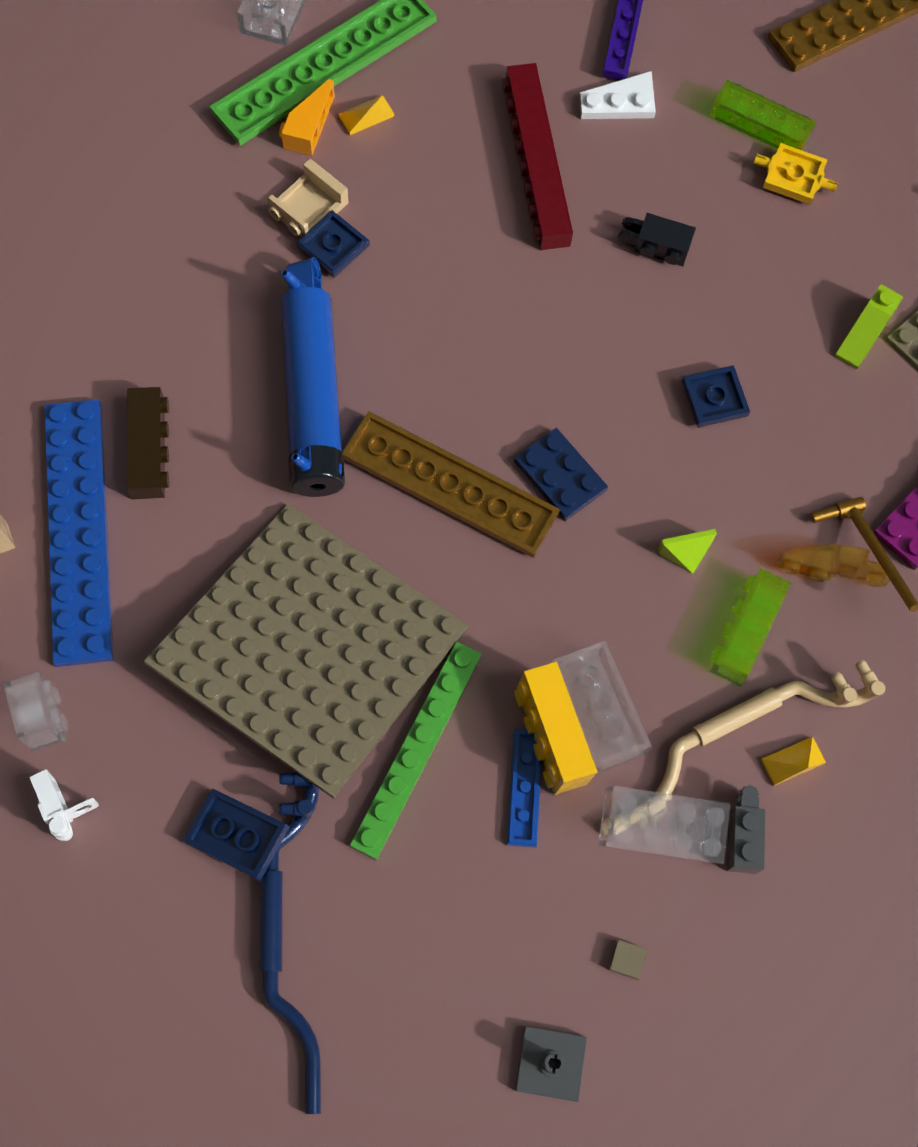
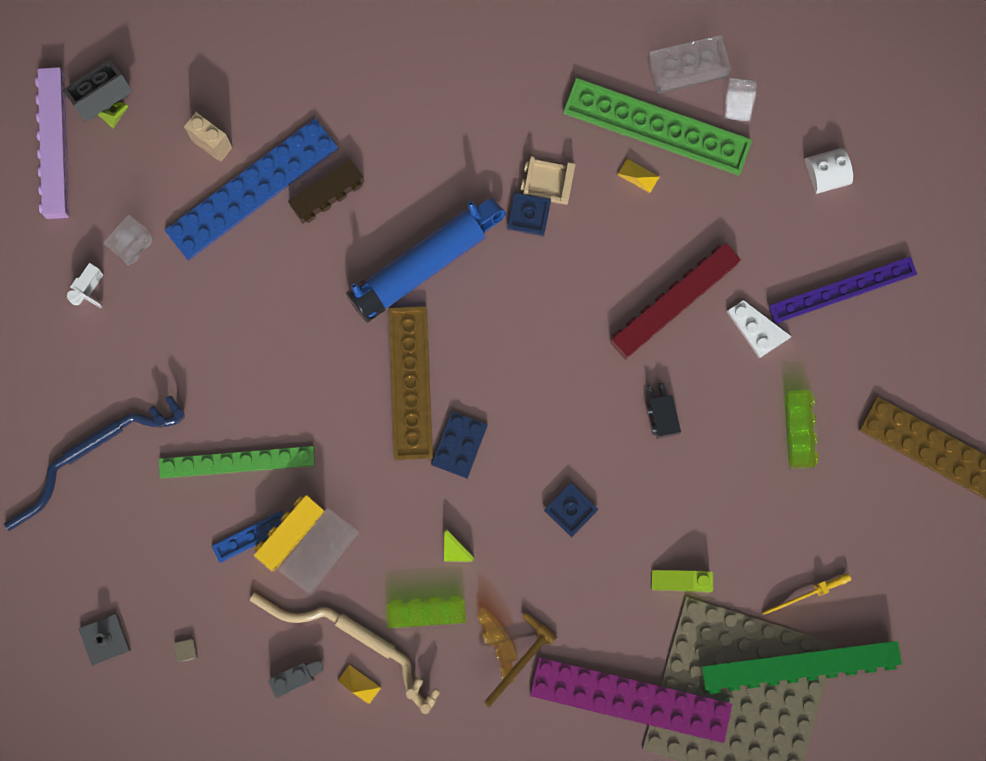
camera: 60 degrees right, 10 degrees up
(236, 834) = (126, 393): dark blue plate -> none
(307, 120) = (604, 143): light orange slope -> none
(308, 648) = (257, 364): dark tan baseplate -> none
(664, 824) = (270, 627): clear brick -> none
(795, 173) = (771, 473): yellow plate -> none

